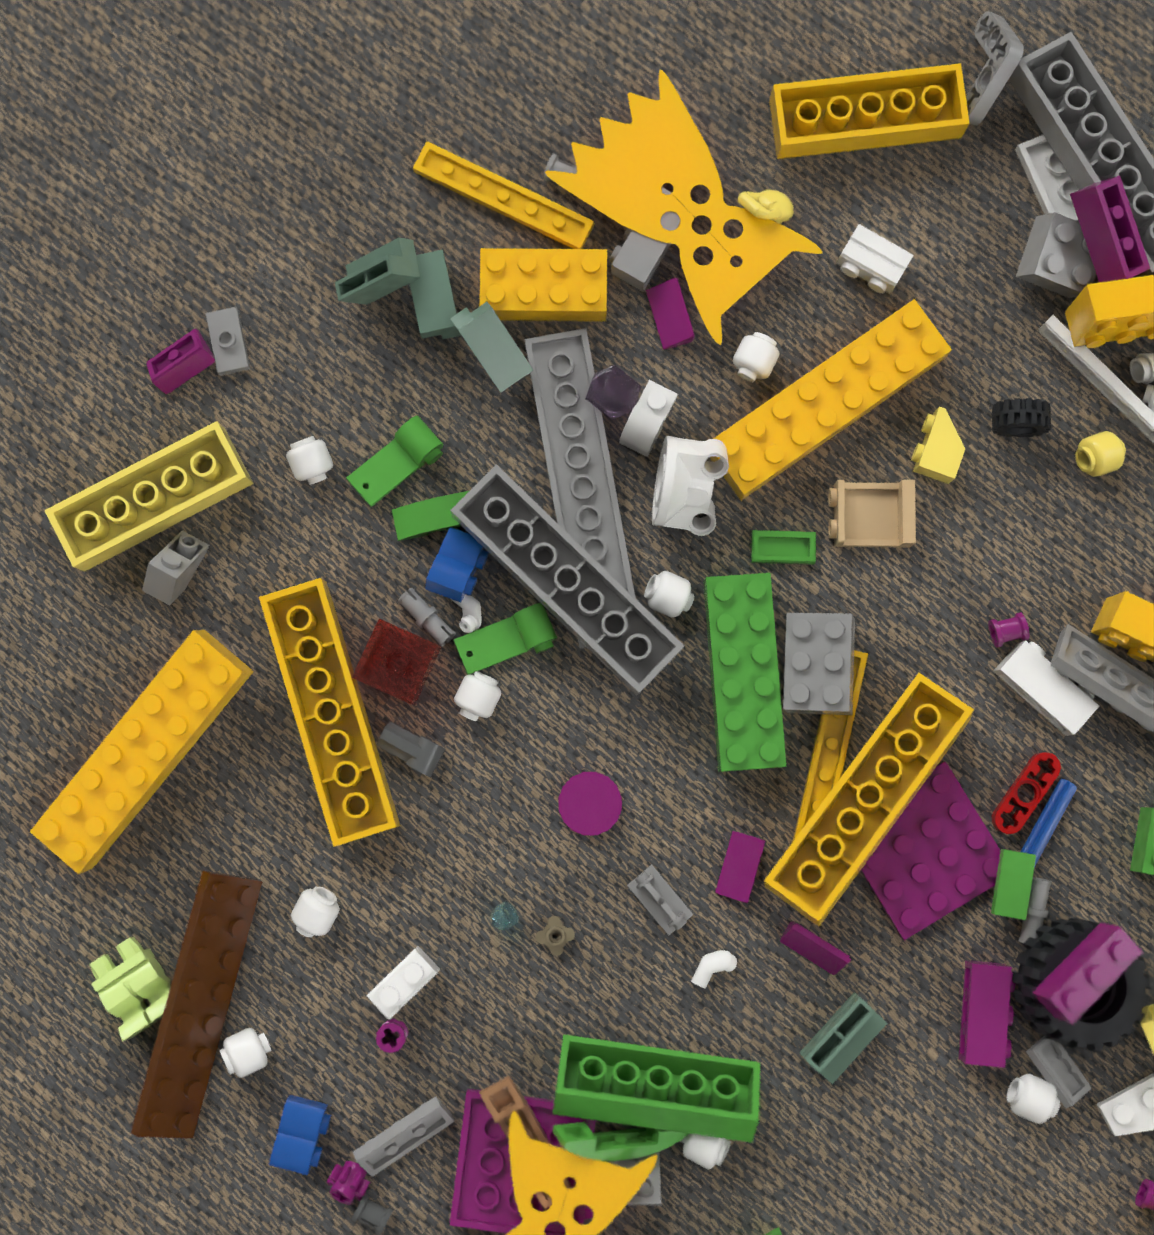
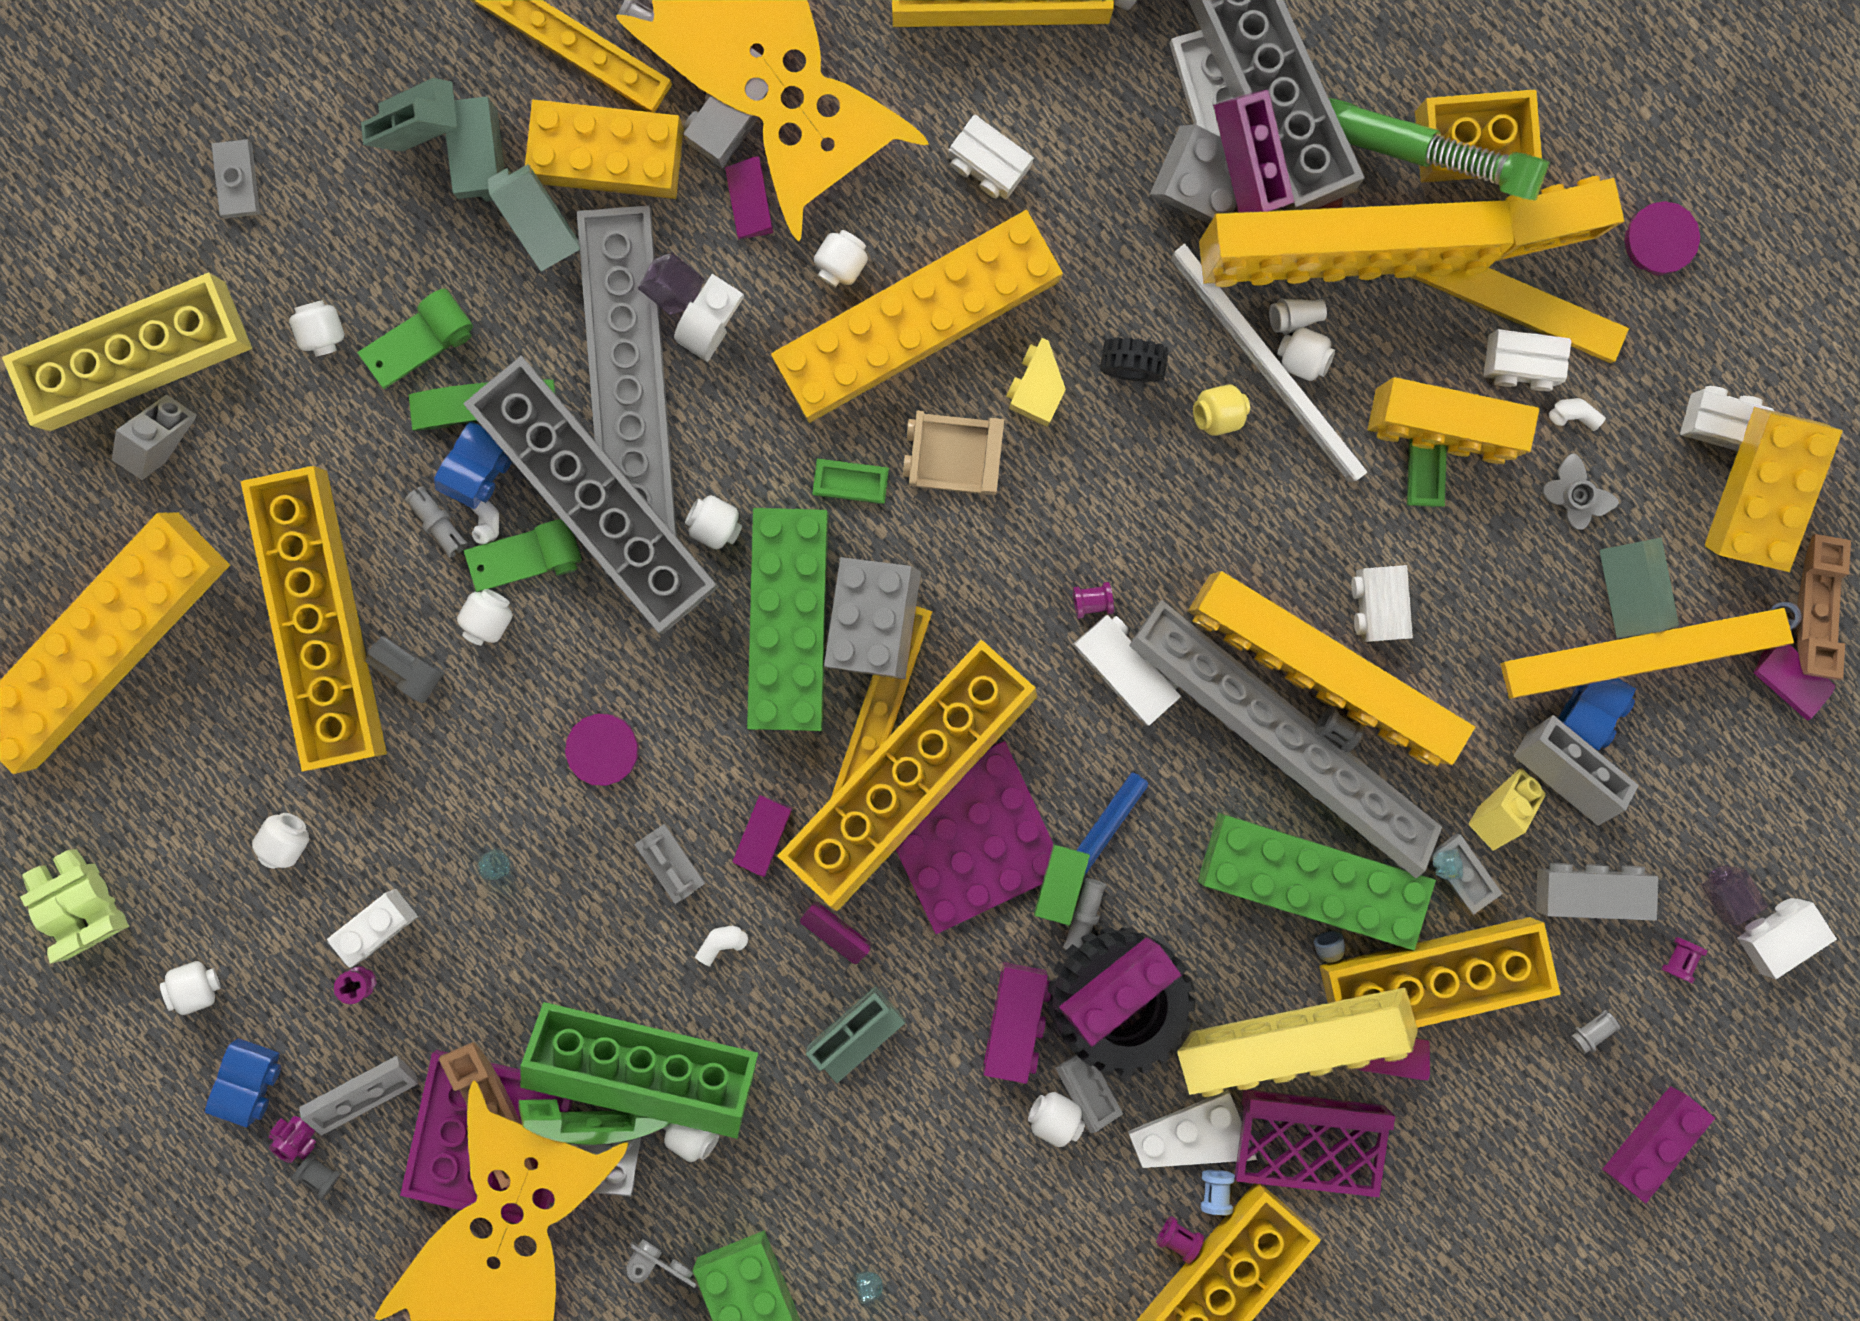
camera: 10 degrees right, 5 degrees up
(180, 362) = (177, 198): magenta slope -> none
(196, 1006) = (137, 931): reddish brown plate -> none
(396, 662) = (394, 570): clear red brick -> none
(555, 926) = (548, 881): dark tan plate -> none
(686, 484) = (741, 398): white piece -> none
(767, 205) = (872, 81): light yellow piece -> none
(1039, 792) = (1067, 799): red beam -> none

